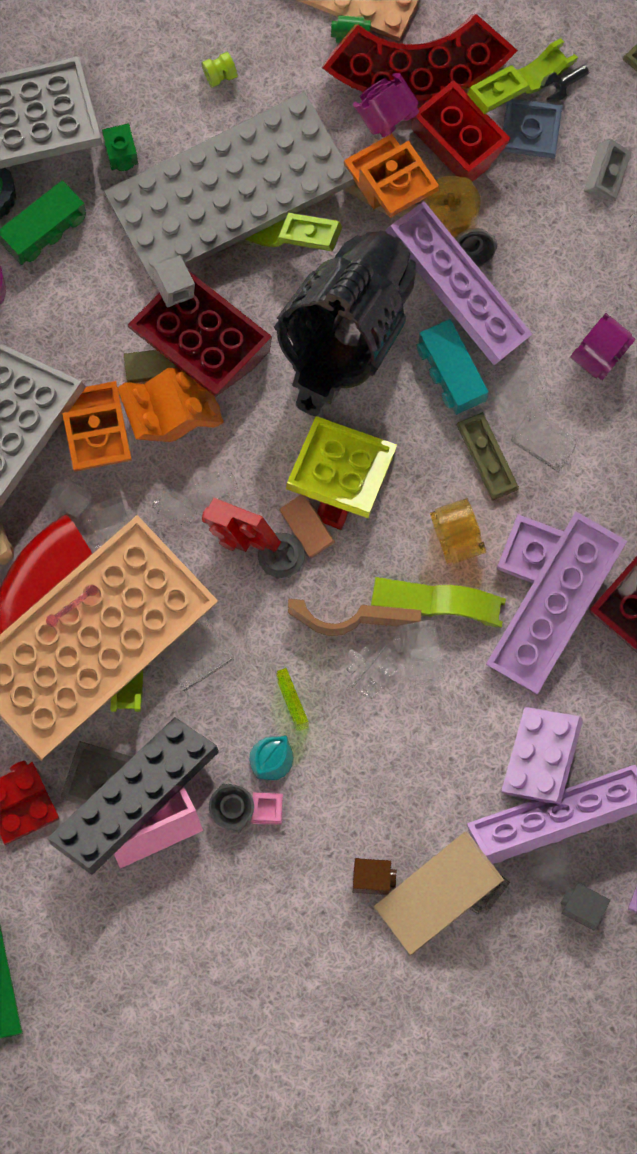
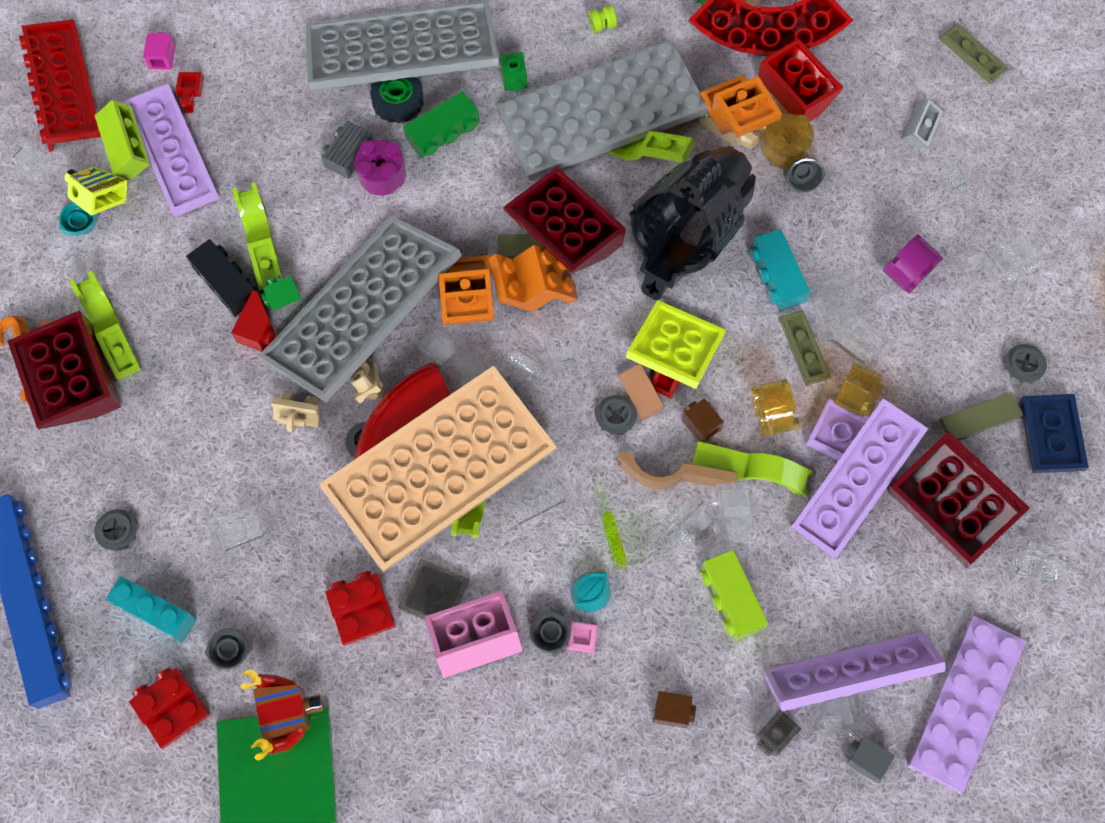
camera: 10 degrees right, 5 degrees down
(52, 620) = (407, 447): clear pink hinge -> none
(133, 795) = (461, 613): plate -> none
(173, 280) = (546, 174): light grey brick -> none
(239, 527) = (582, 385): red plate -> none
(378, 553) = (702, 420): none -> reddish brown brick
(387, 105) = (740, 52): magenta brick -> none
(427, 747) = (733, 596): none -> lime brick
(438, 893) = (734, 732): tan tile -> none
(460, 283) = (792, 200): lavender plate -> none
(511, 82) = (844, 45): lime piece -> none
(532, 128) = (861, 85): sand blue tile -> none
(542, 755) = (838, 614): lavender plate -> none
(550, 503) = (859, 390): none -> clear yellow brick
(562, 82) = (887, 52): black bar -> none

